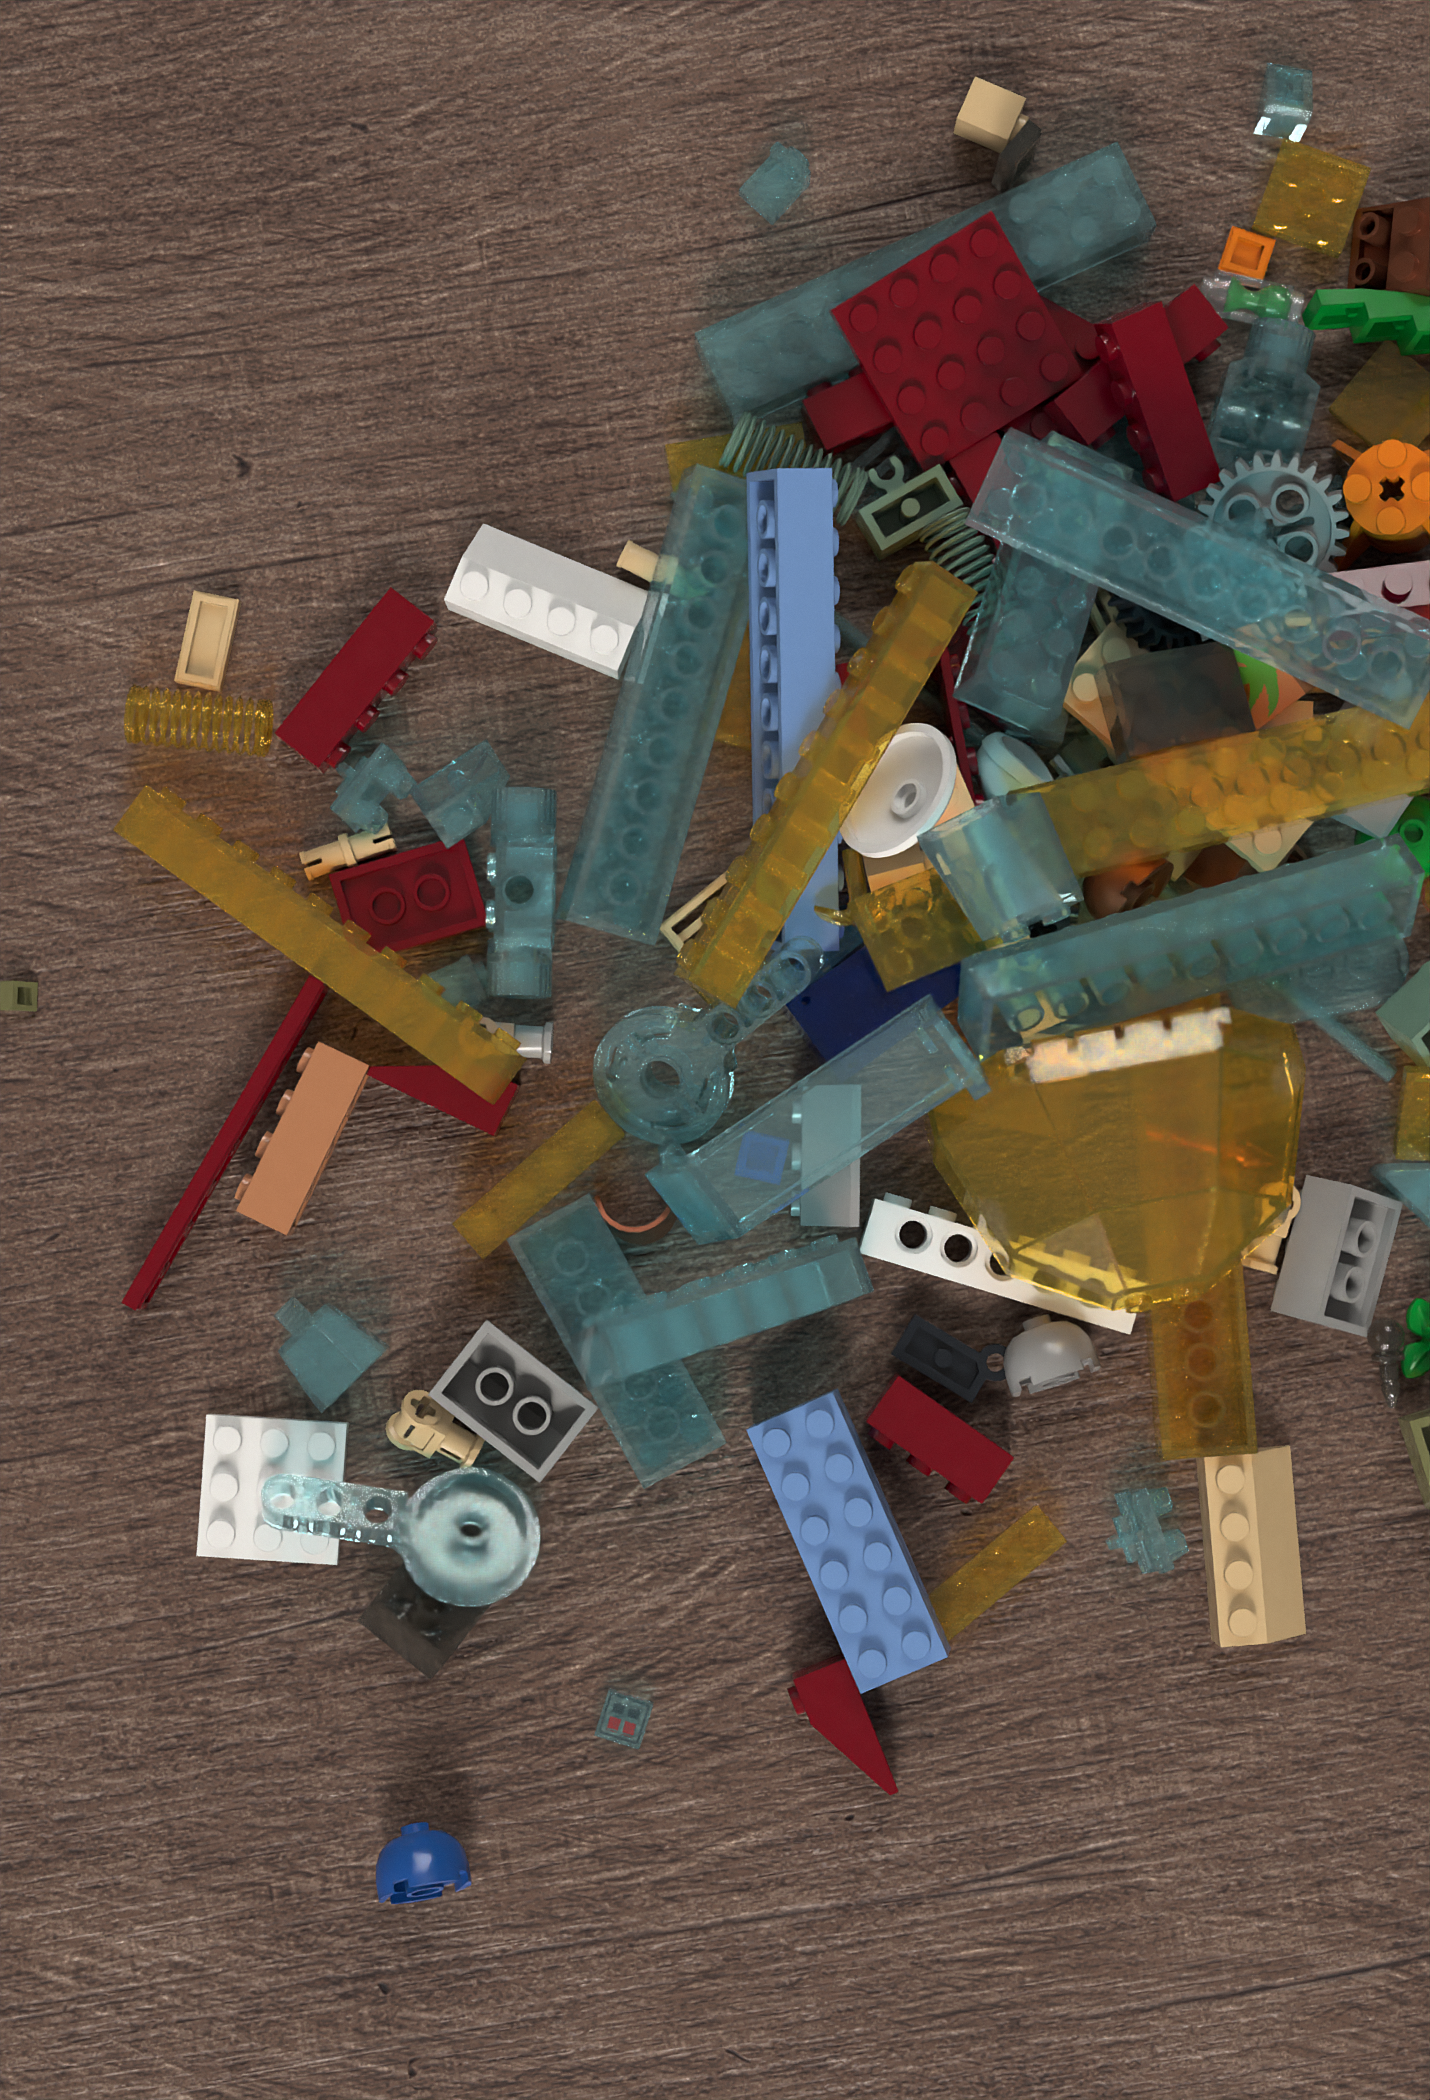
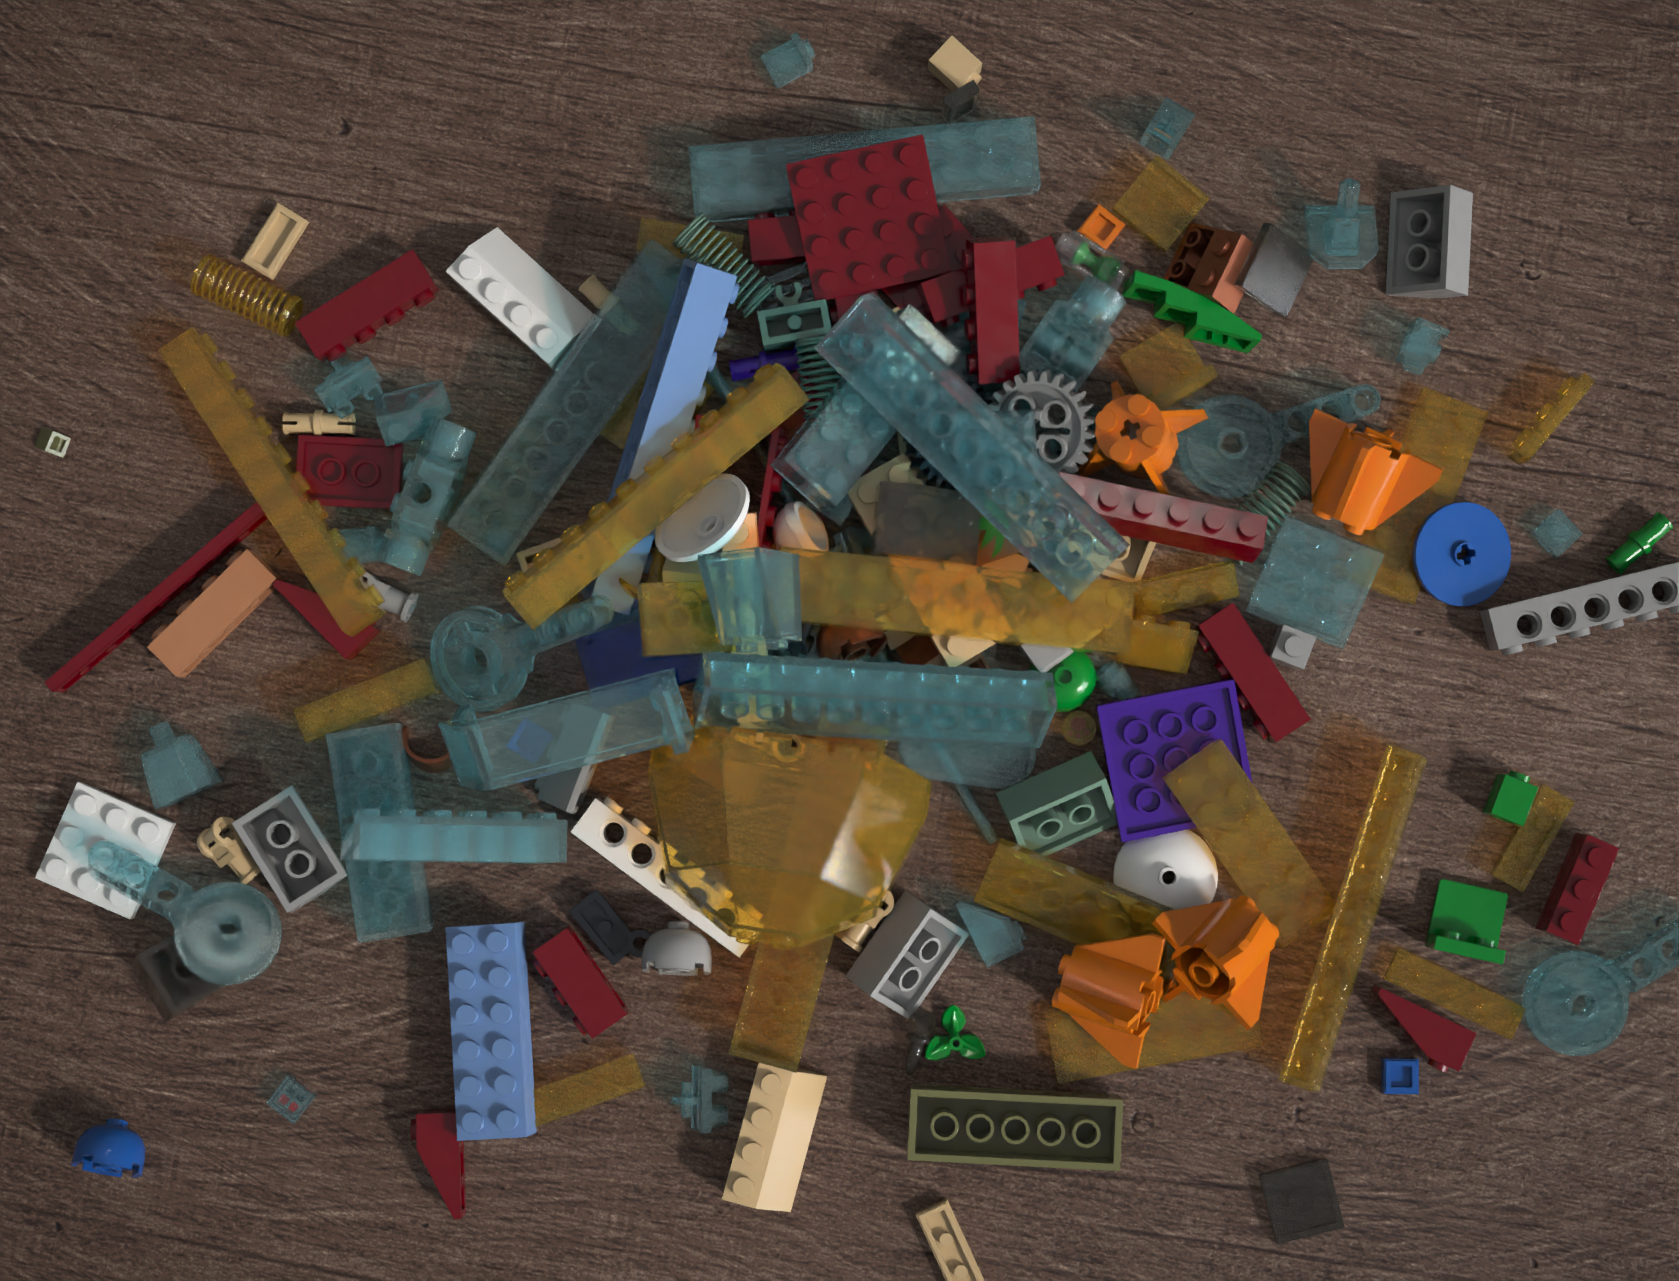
camera: 25 degrees right, 0 degrees up
(880, 578) = (747, 367): none -> dark purple pin

